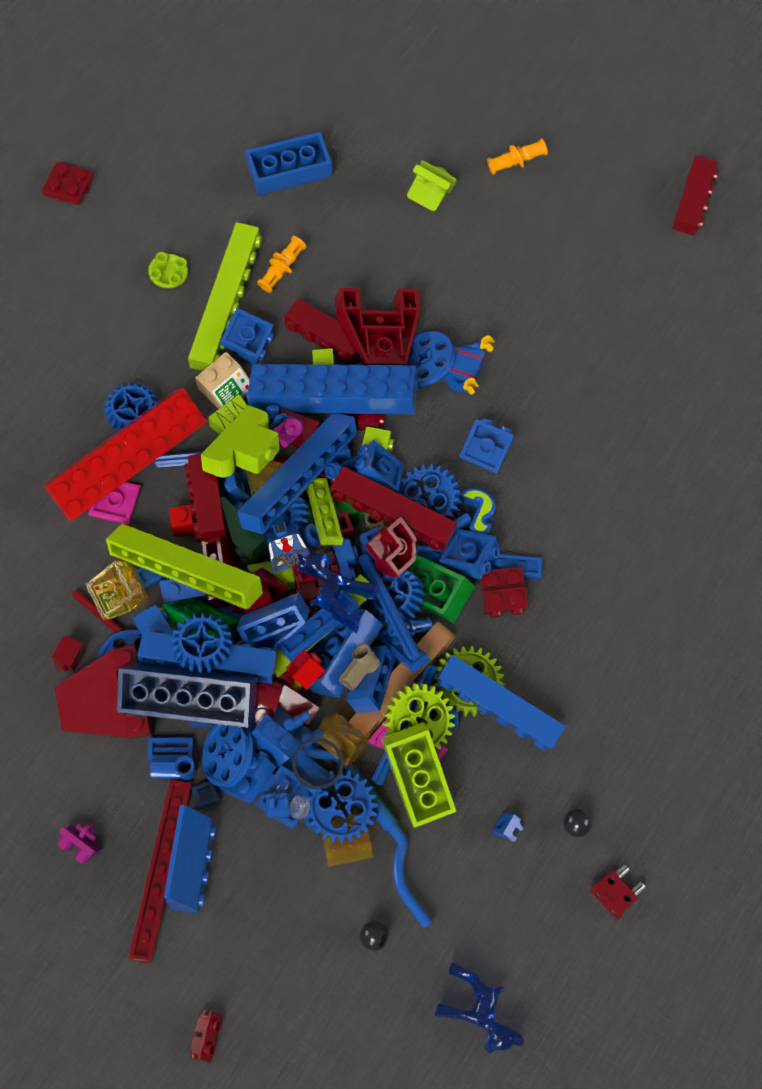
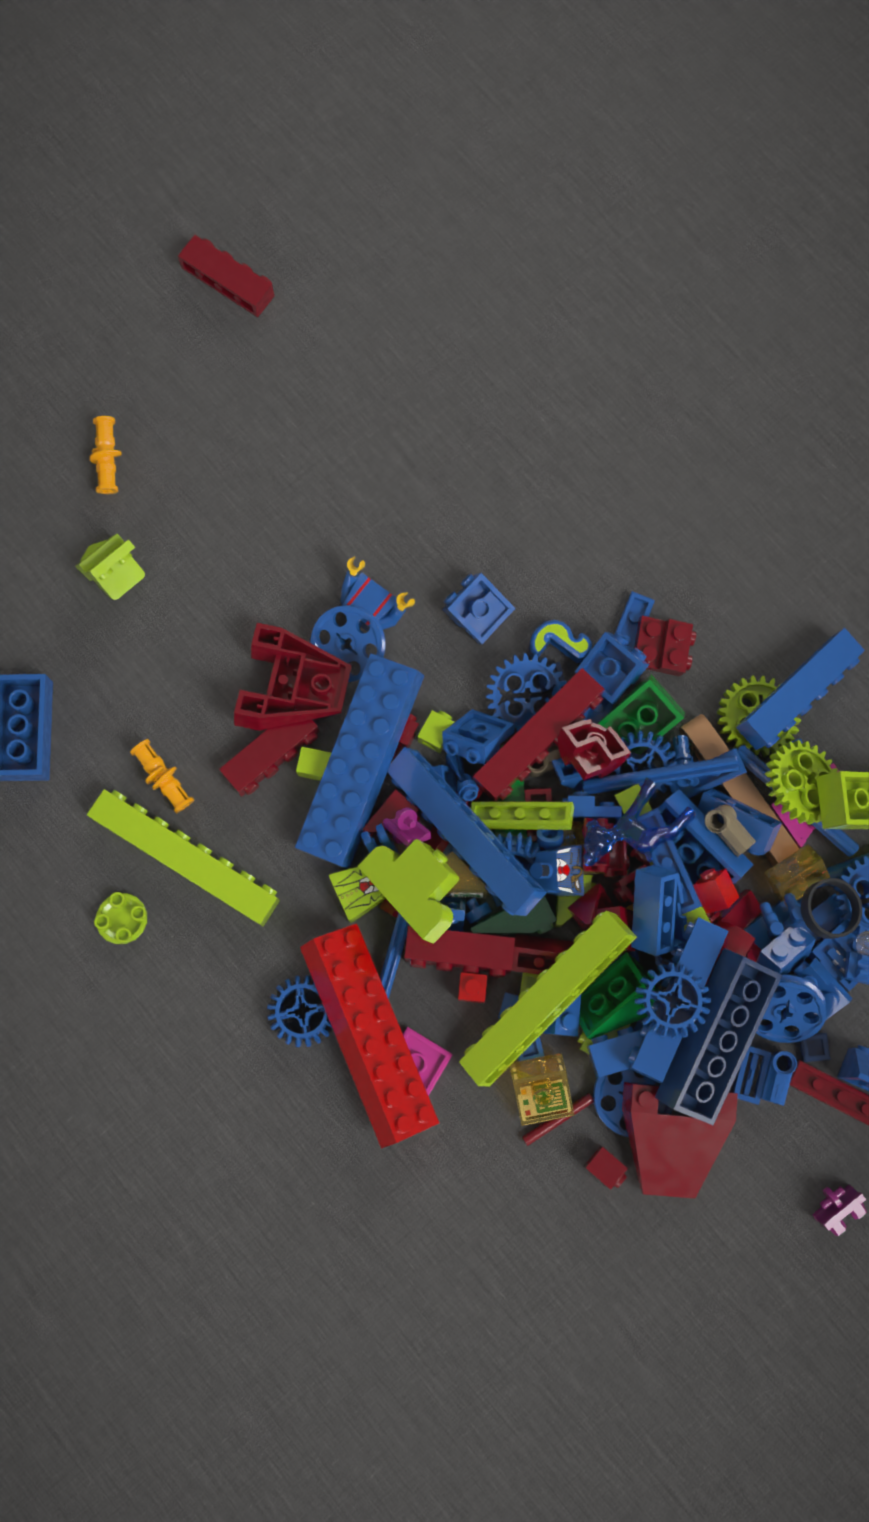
camera: 70 degrees left, 10 degrees up
(223, 381) = (304, 888): tan slope -> none
(247, 336) = (250, 844): blue plate -> none
(463, 522) = (567, 666): blue tile -> none

